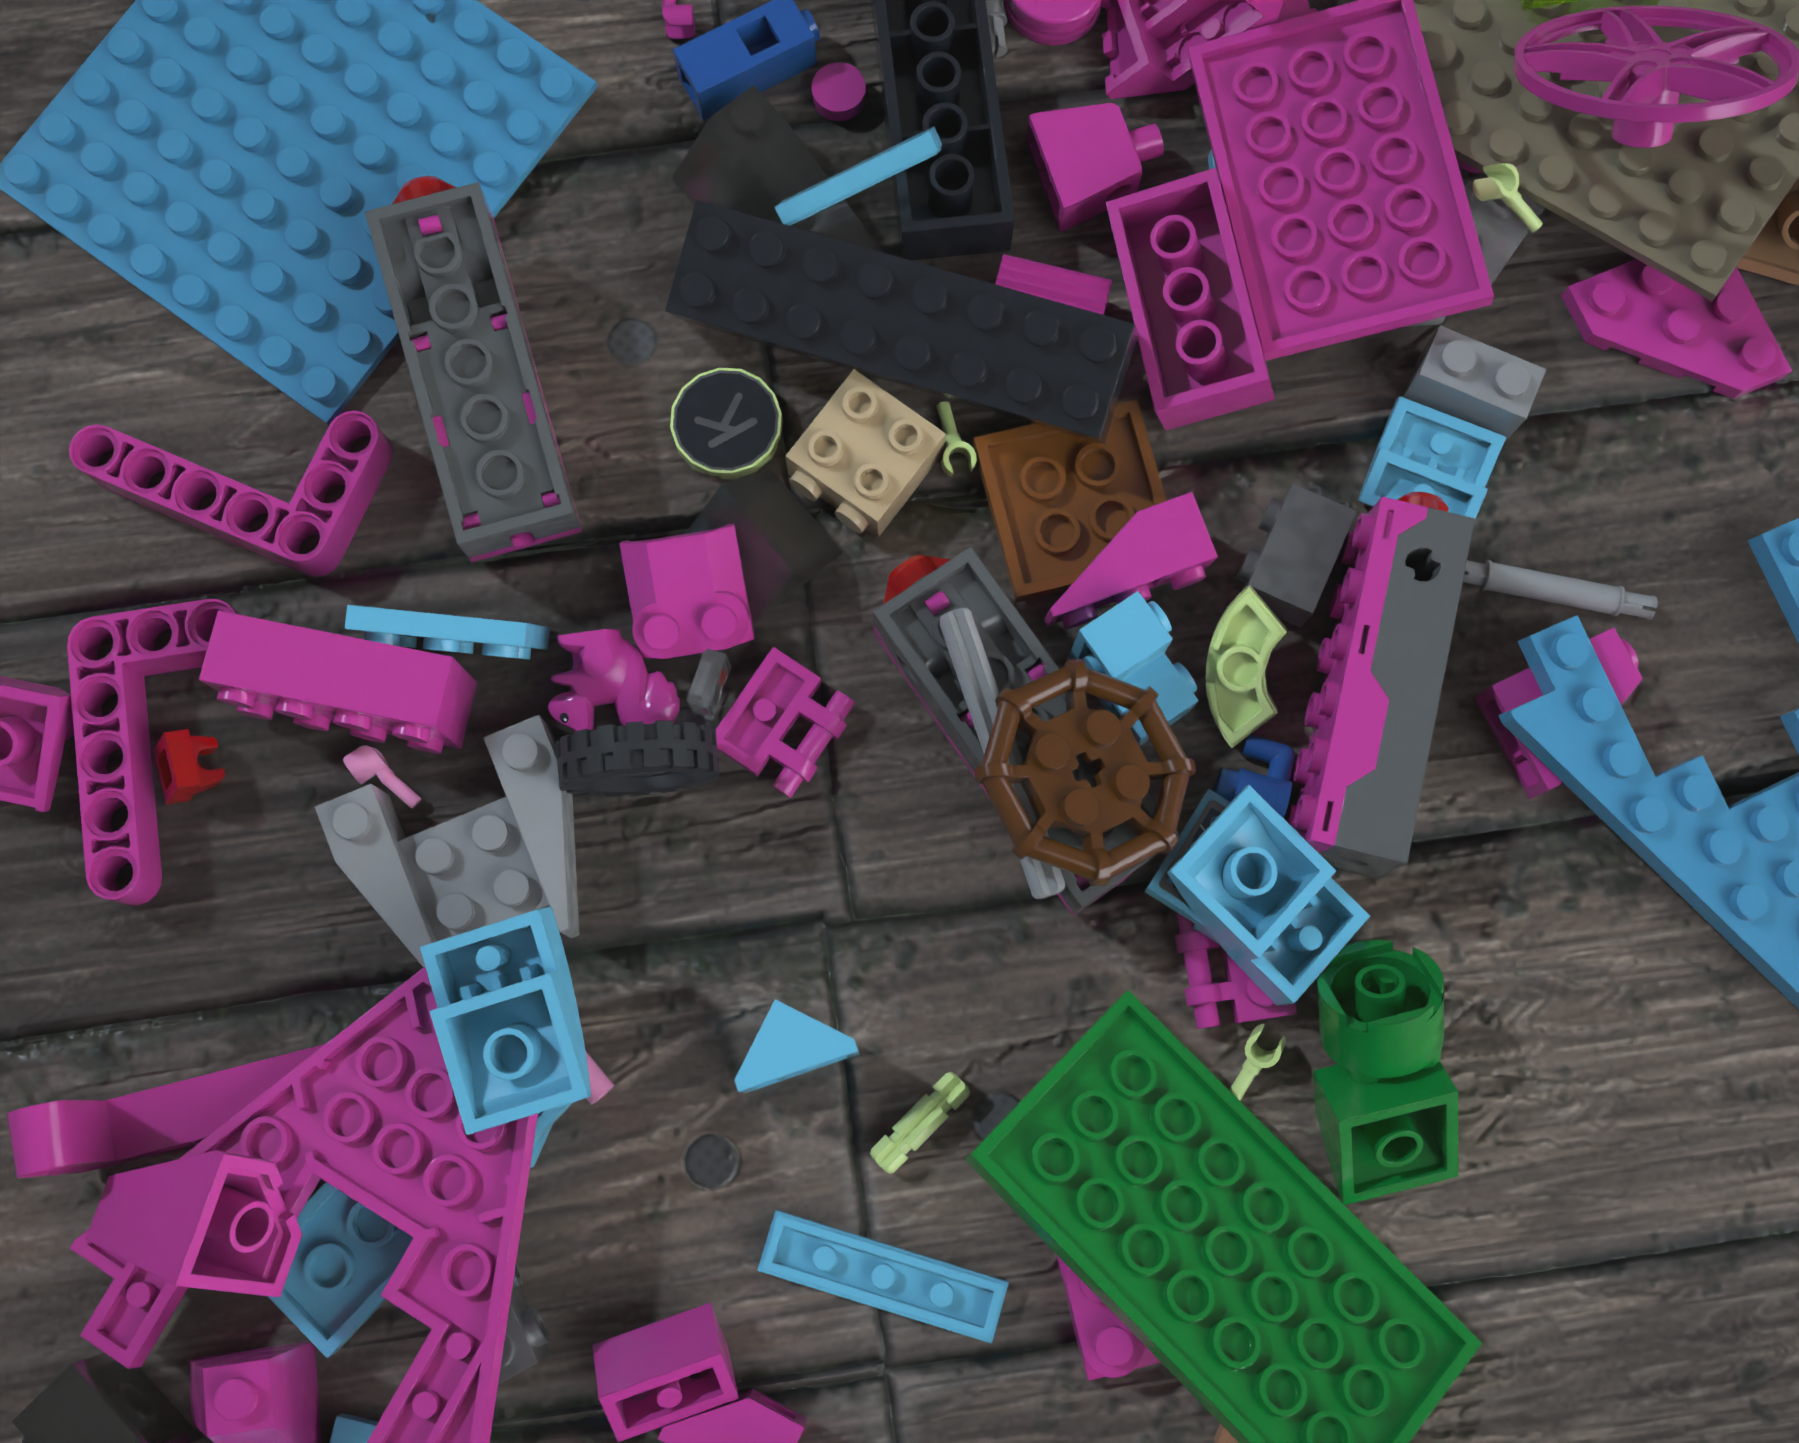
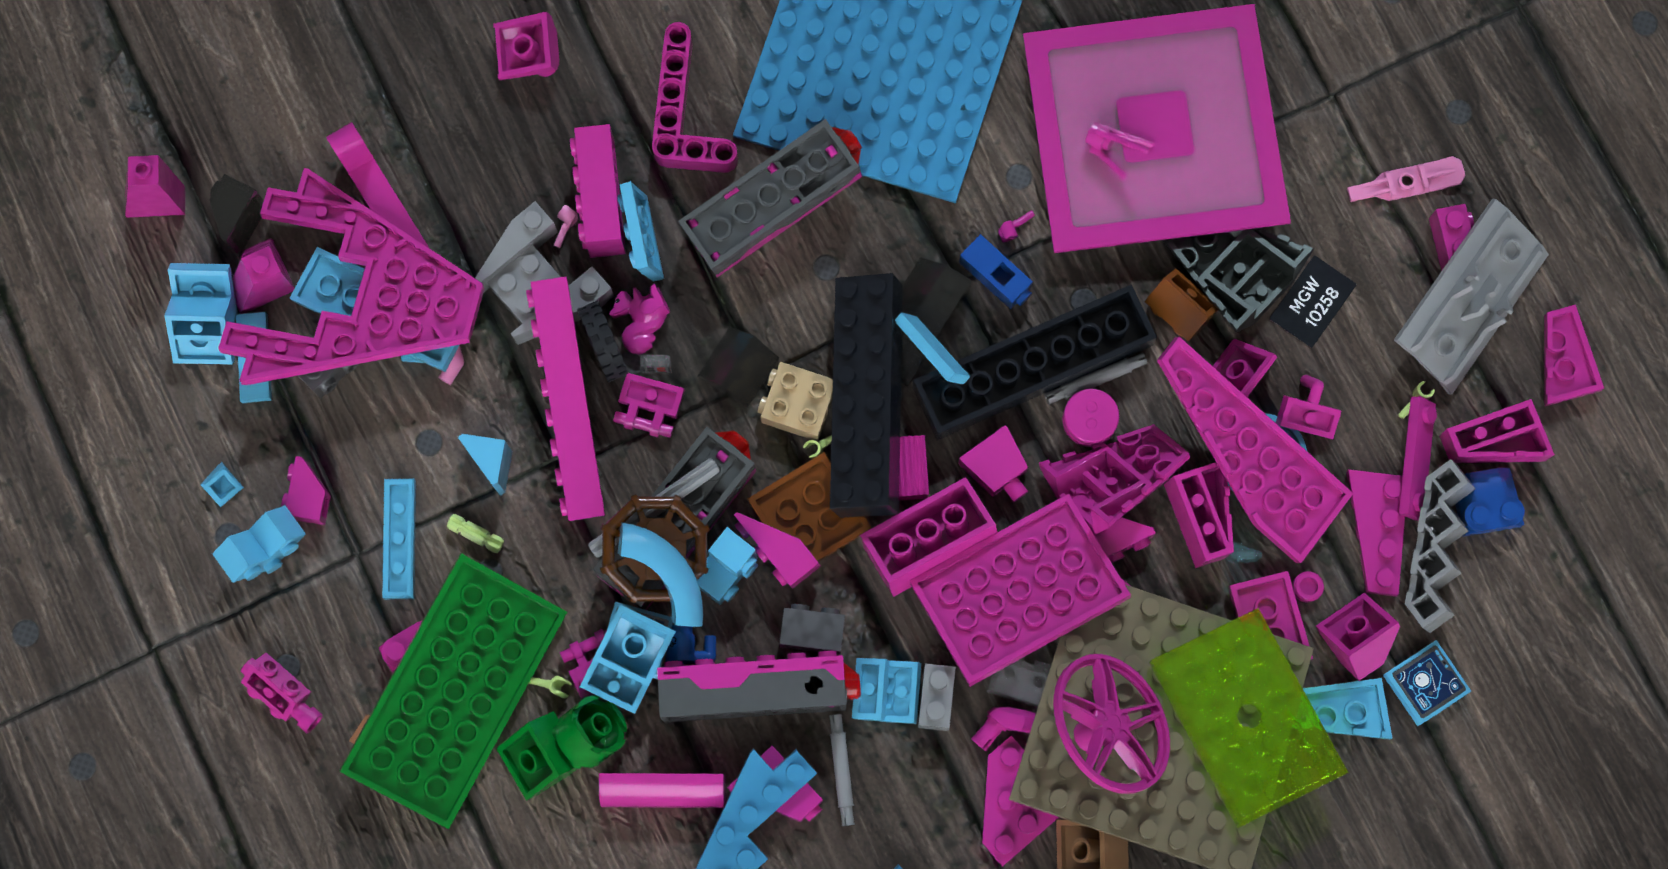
camera: 75 degrees right, 0 degrees up
(128, 730) = (547, 102): dark pink beam -> none
(178, 765) = (538, 131): red tile -> none
(201, 1223) = (329, 222): dark pink slope -> none
(507, 1020) = (458, 322): medium azure slope -> none
(664, 1372) = (326, 450): dark pink brick -> none
(687, 593) = (696, 338): dark pink slope -> none
(722, 860) = (567, 399): none -> dark pink brick
(726, 423) = (795, 328): black tile -> none
(838, 91) = (996, 325): dark pink tile -> none
(1100, 769) = (671, 568): none -> medium azure brick
(1238, 666) = (744, 618): yellowish green tile -> none
(1503, 184) = (1038, 679): yellowish green hand -> none
(1513, 910) = (662, 790): none -> dark pink brick
(1540, 283) = (1002, 719): none -> dark pink arm

